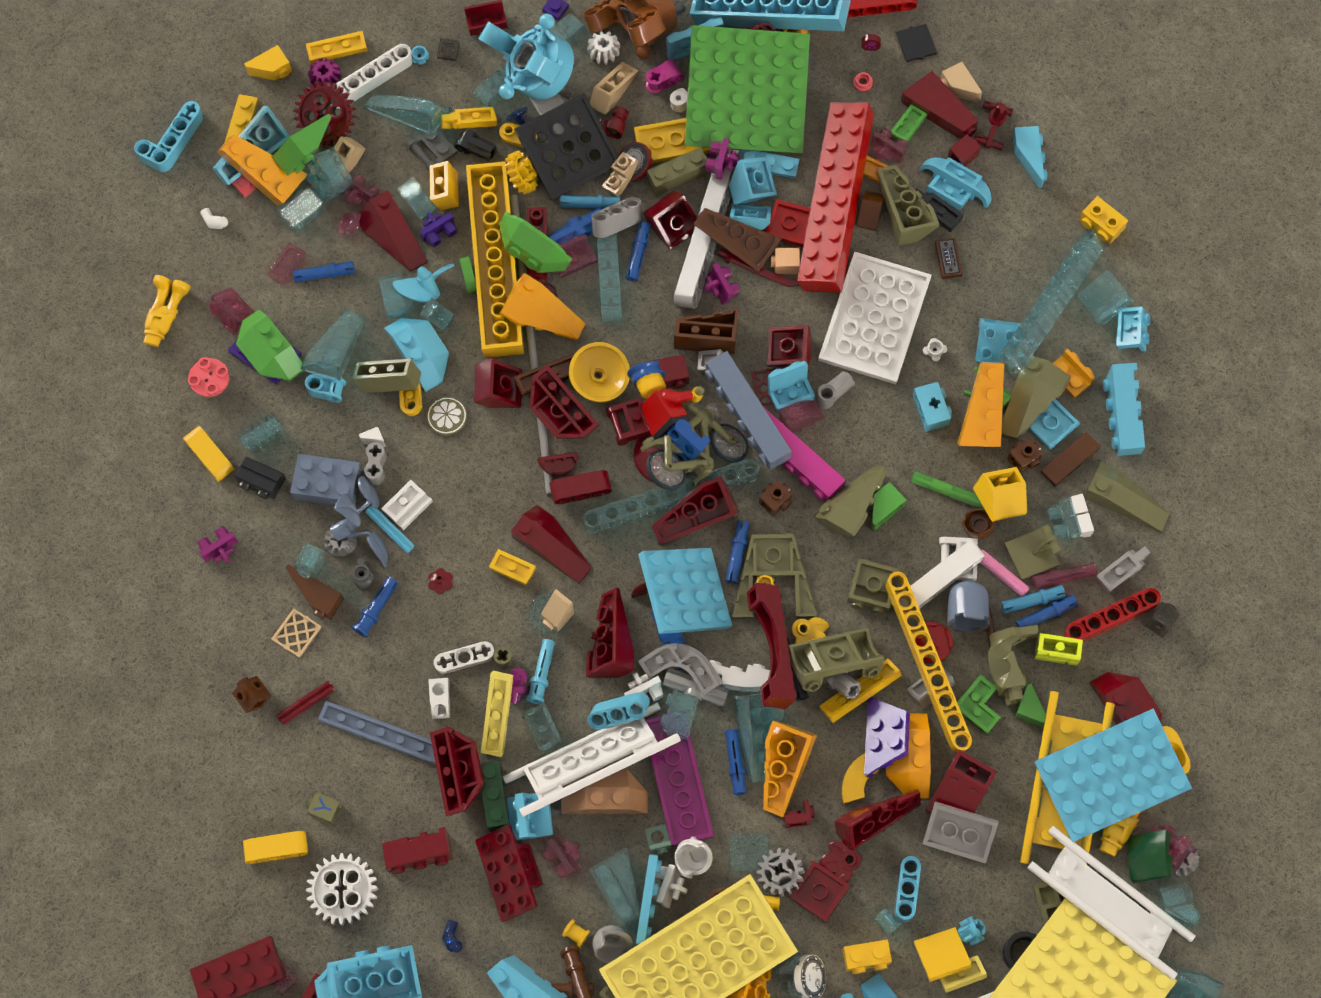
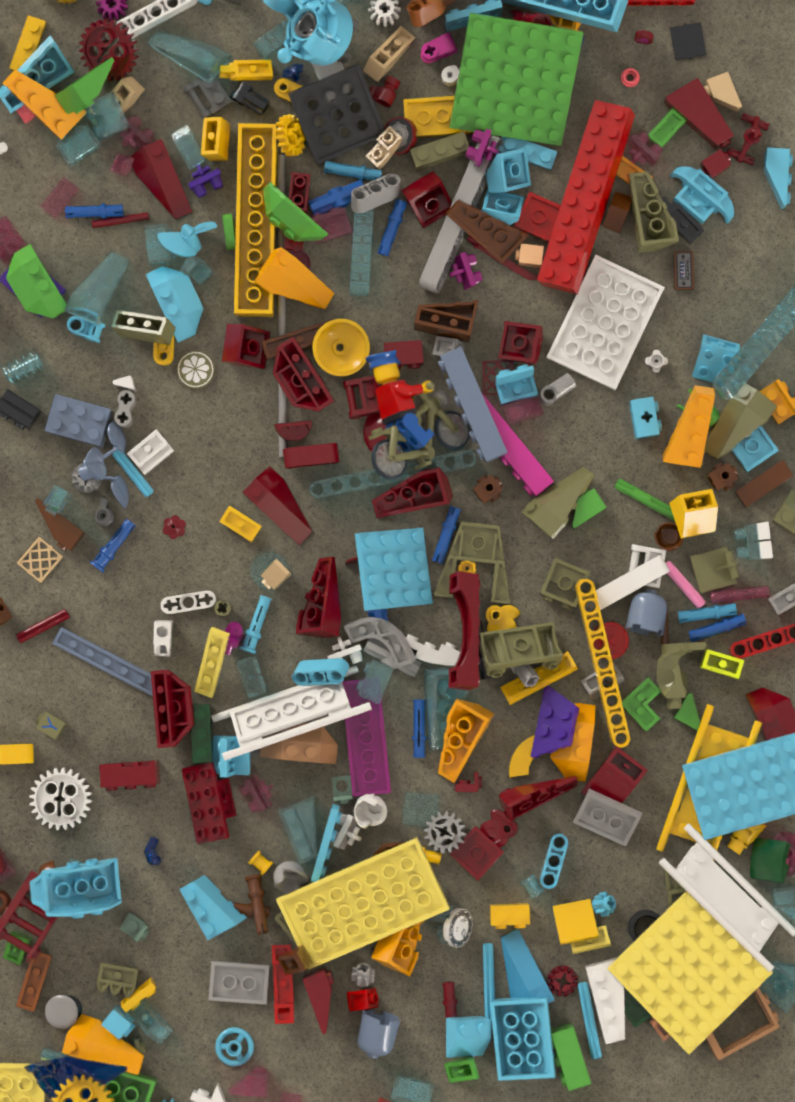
camera: 10 degrees right, 15 degrees up
(352, 278) = (120, 220): none -> dark red bar

